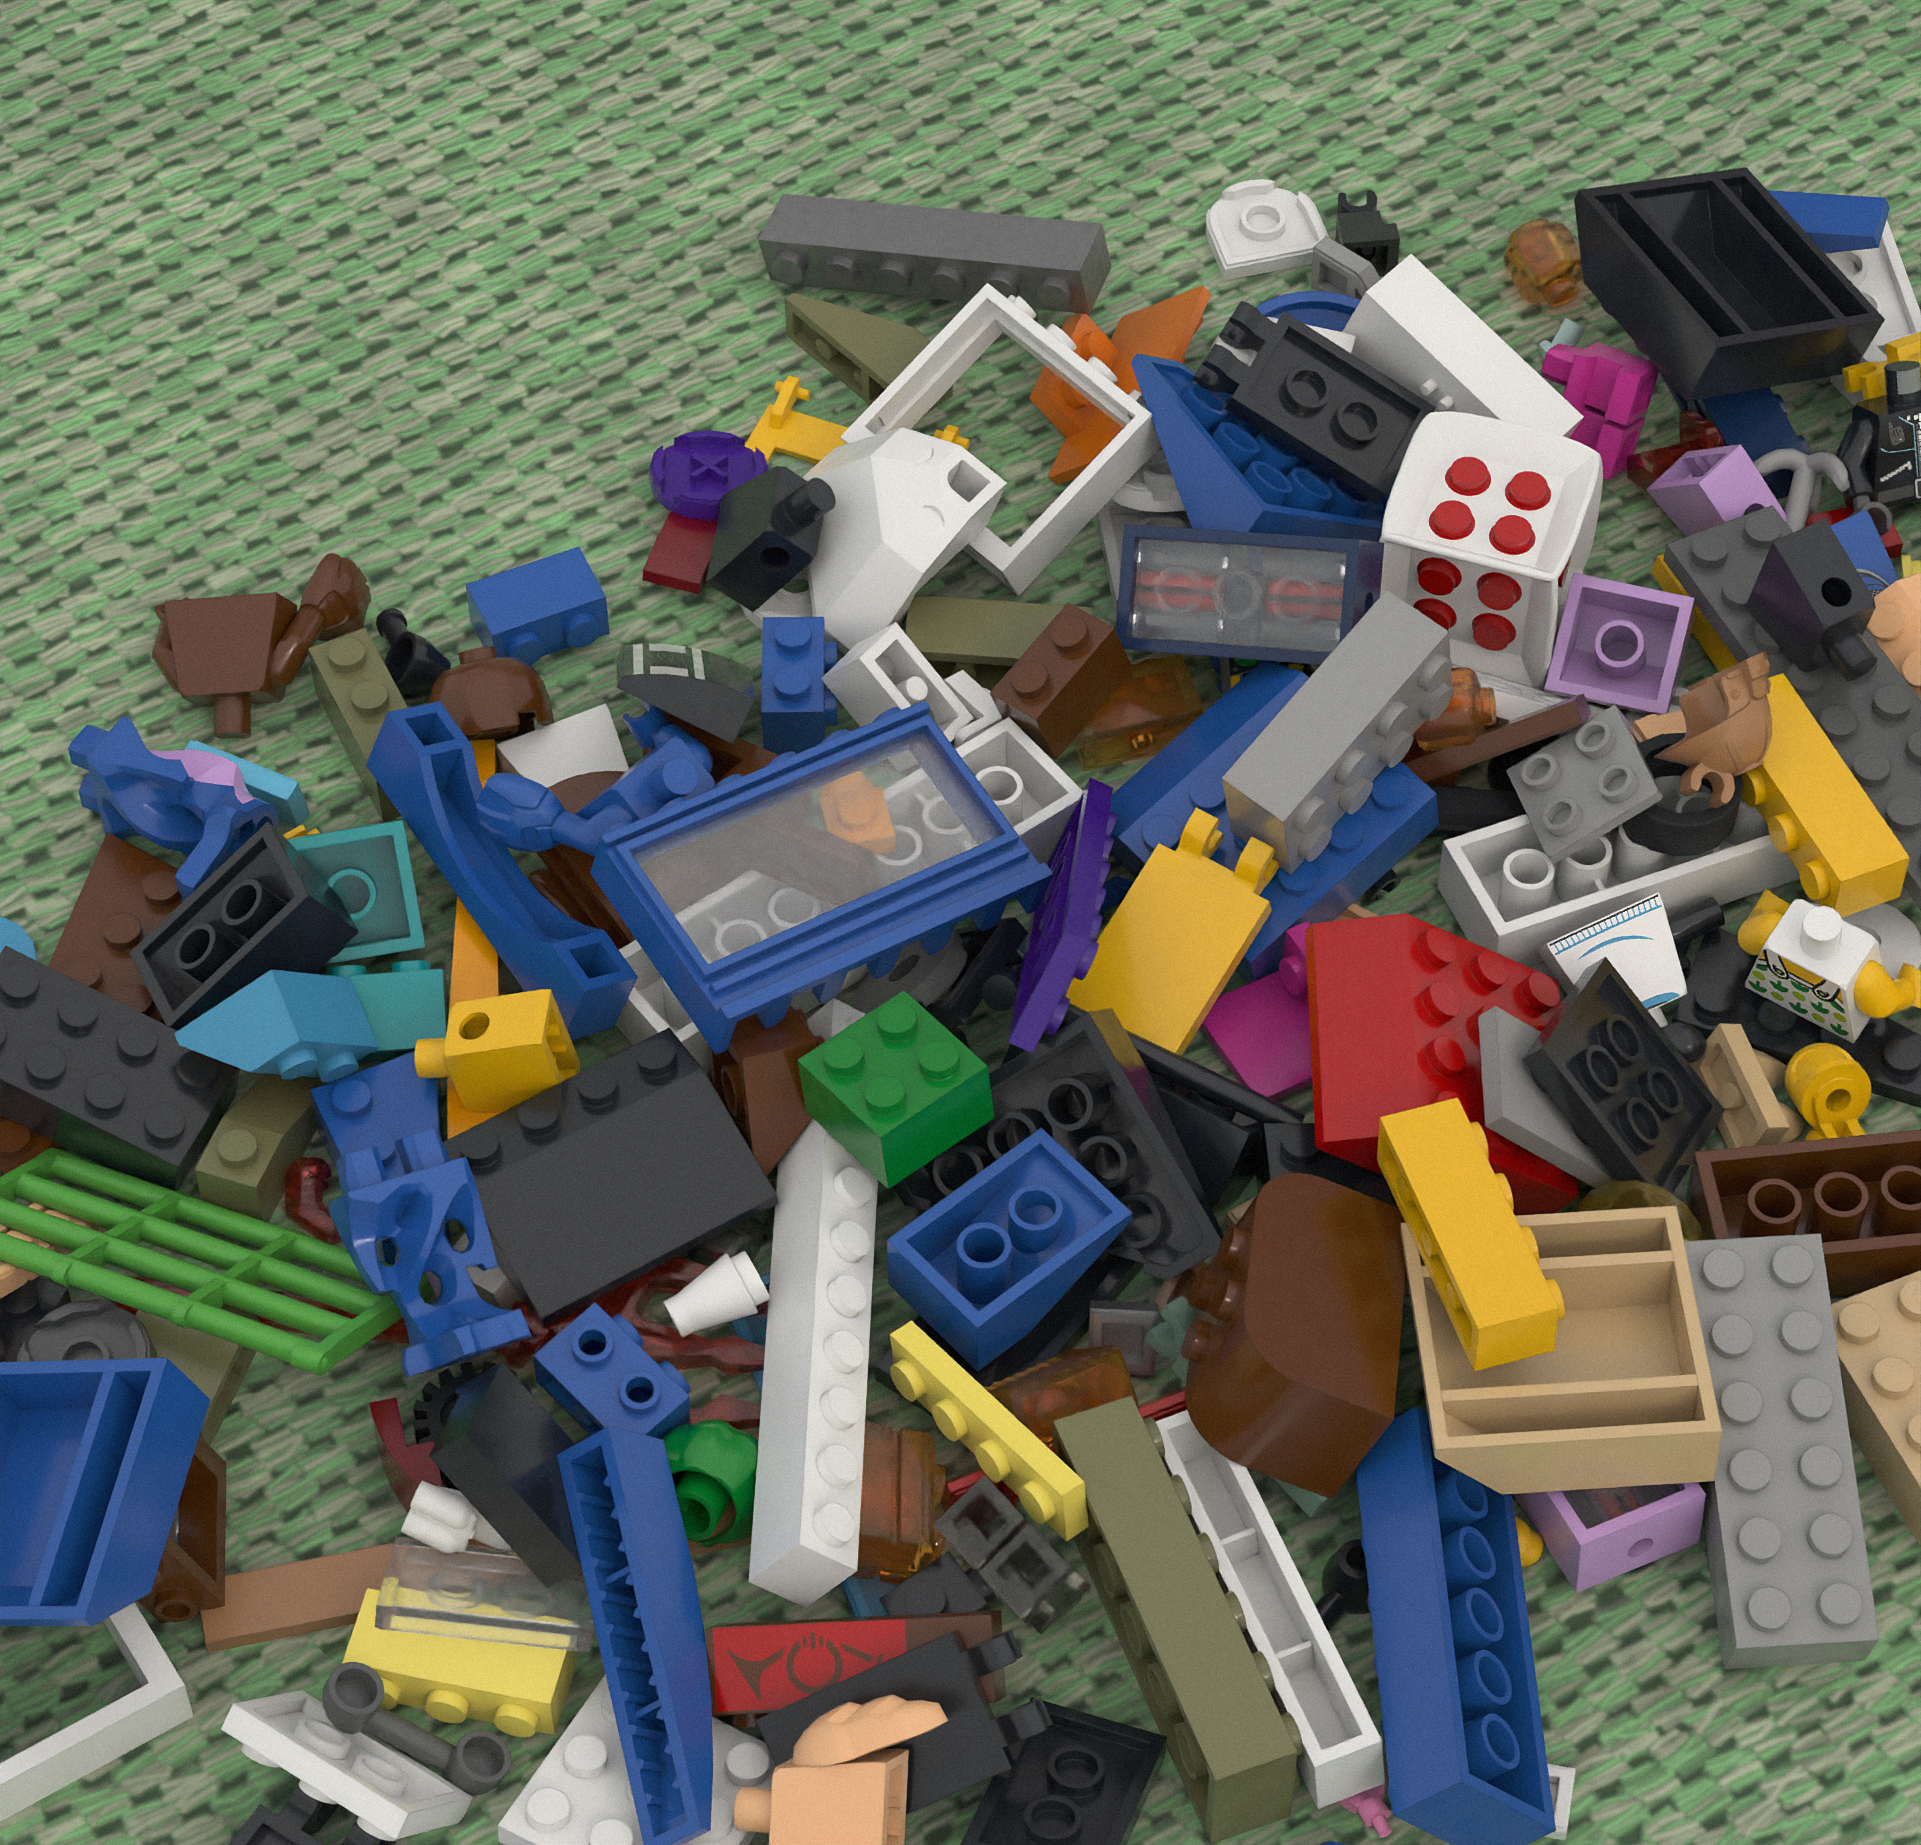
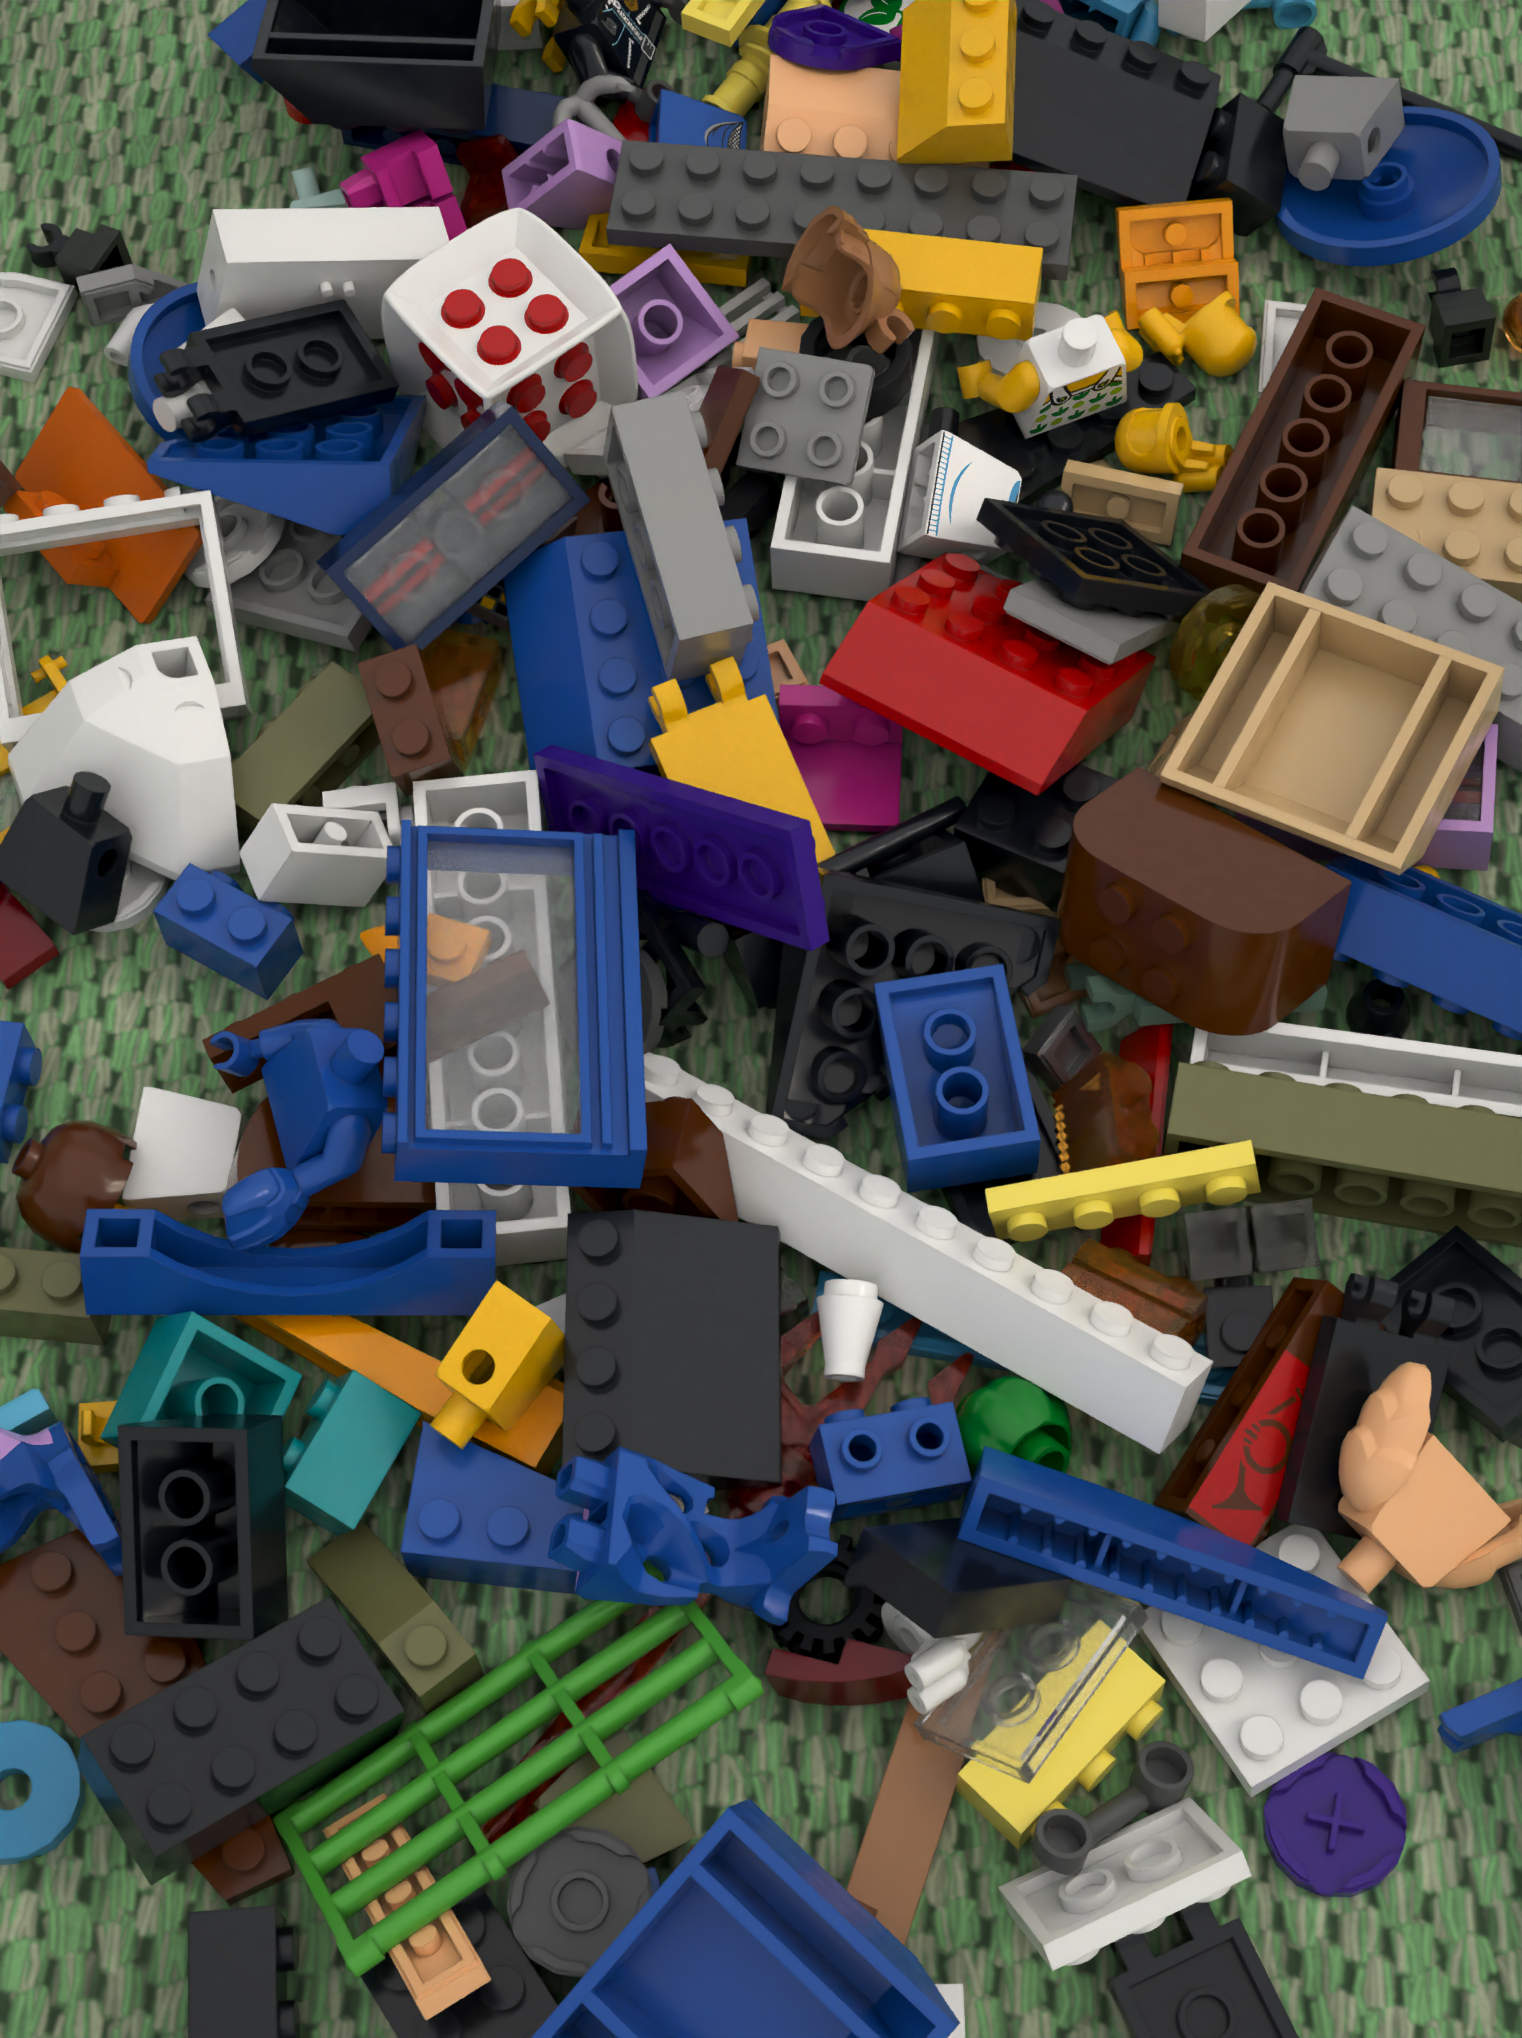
camera: 55 degrees left, 10 degrees up
(286, 1027) = (347, 1538): dark azure slope -> none
(304, 1198) = (486, 1623): clear red arm -> none
(689, 684) = (208, 1000): black slope -> none
(896, 1089) = (776, 1066): green brick -> none
(1469, 1234) = (1221, 729): yellow brick -> none
(1544, 262) = (219, 153): clear orange head -> none
(1814, 602) = (775, 159): black torso -> none

